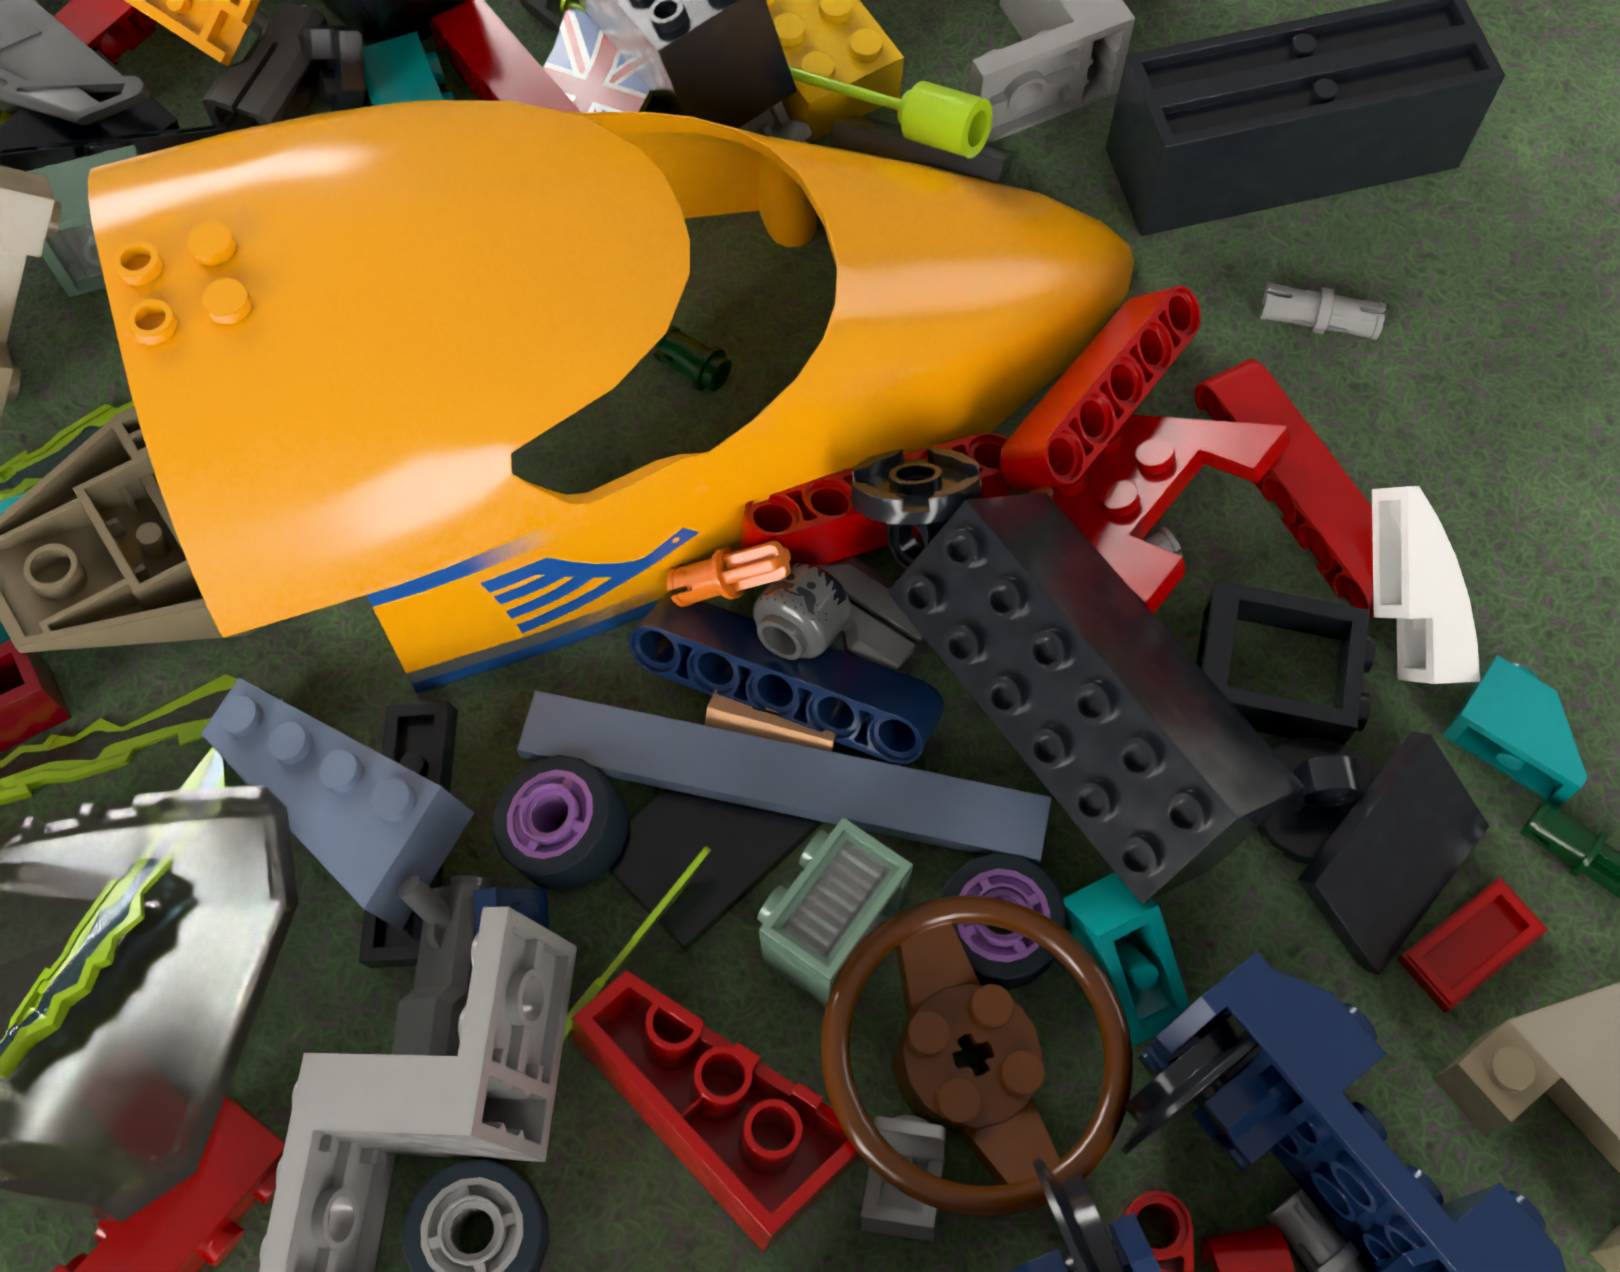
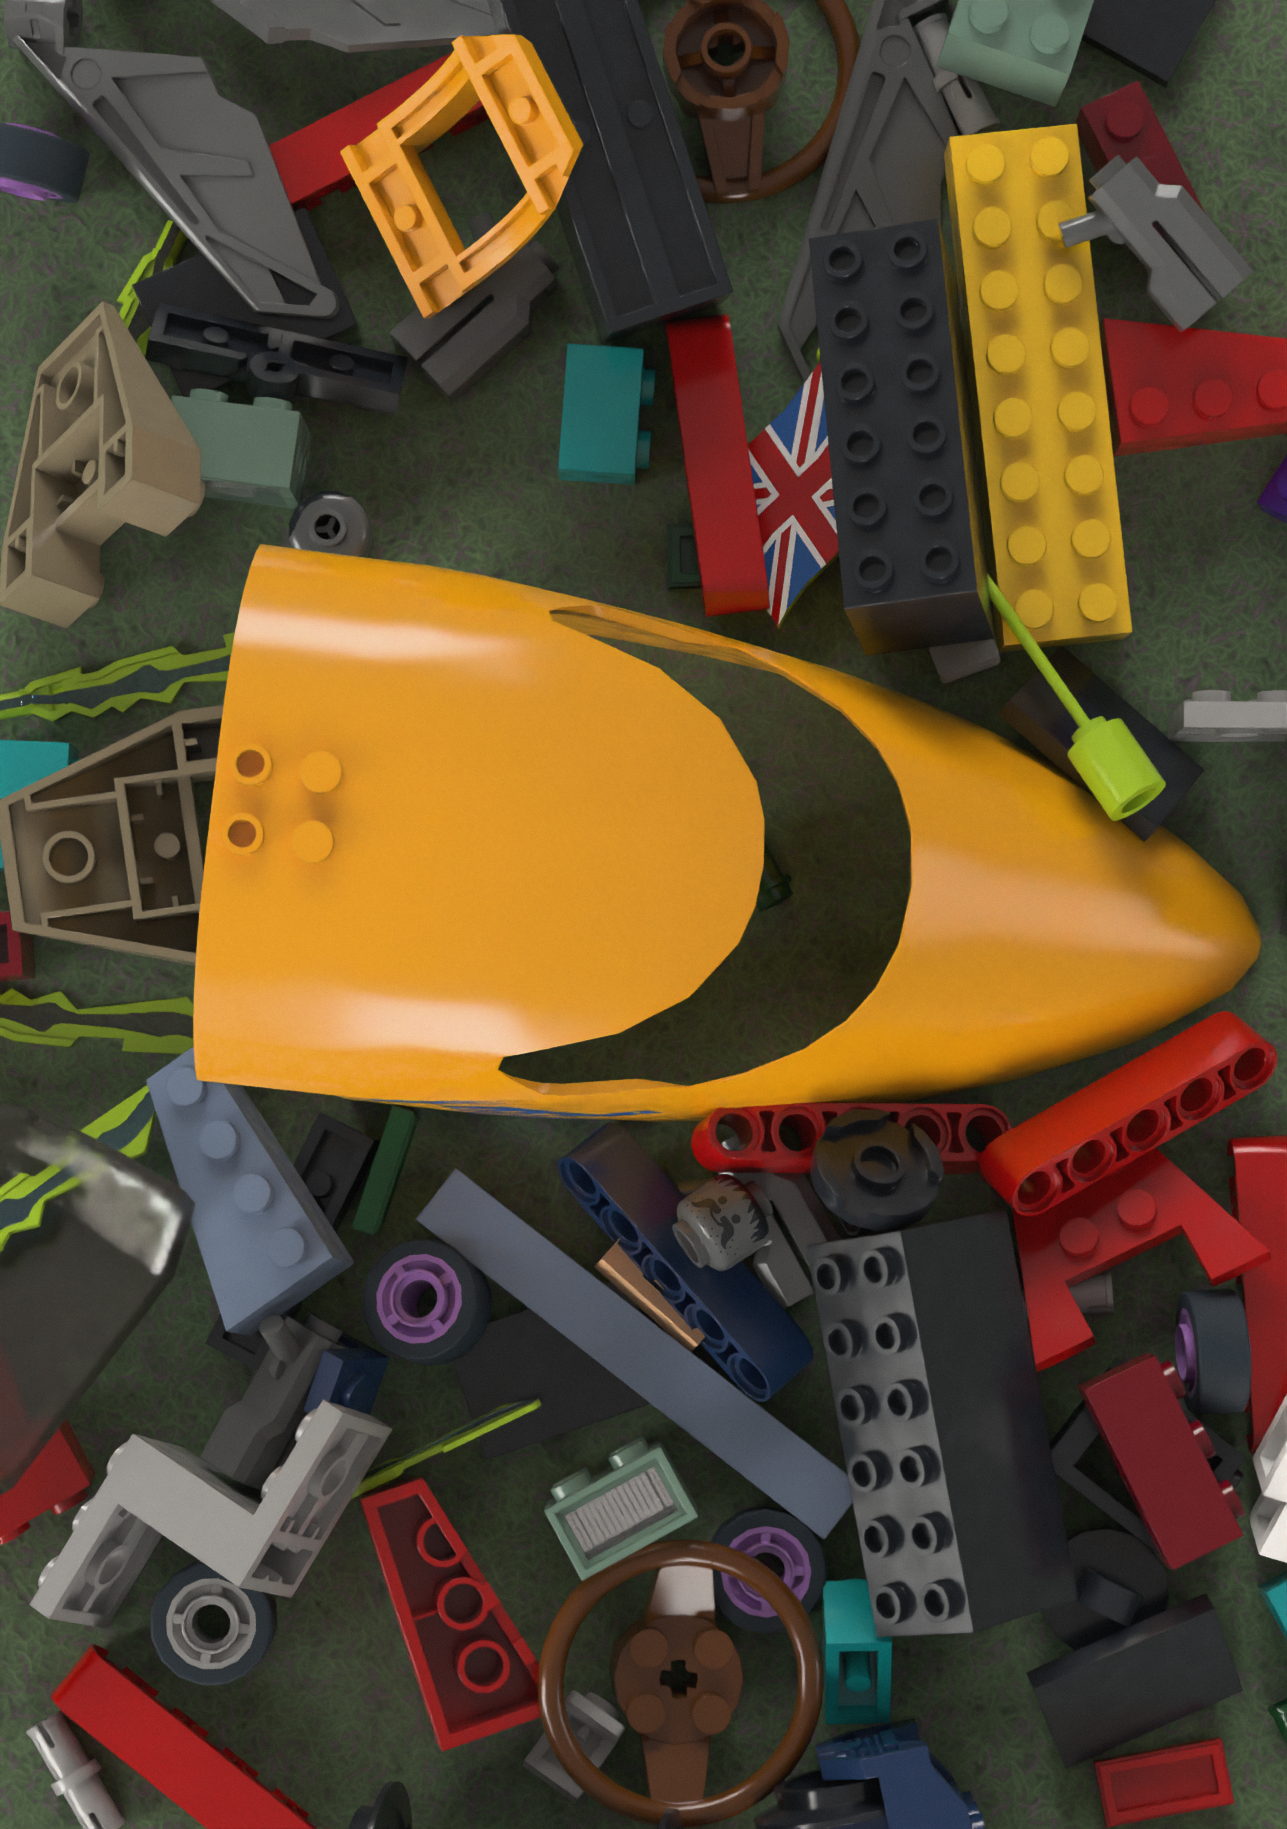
camera: 30 degrees right, 20 degrees up
(343, 72) = (544, 358): black plate -> none
(471, 728) = (386, 1170): none -> dark green tile
(729, 573) = (671, 1157): orange axle -> none
(1288, 538) = (1213, 1351): none -> black wheel
(1303, 630) = (1163, 1459): none -> dark red brick

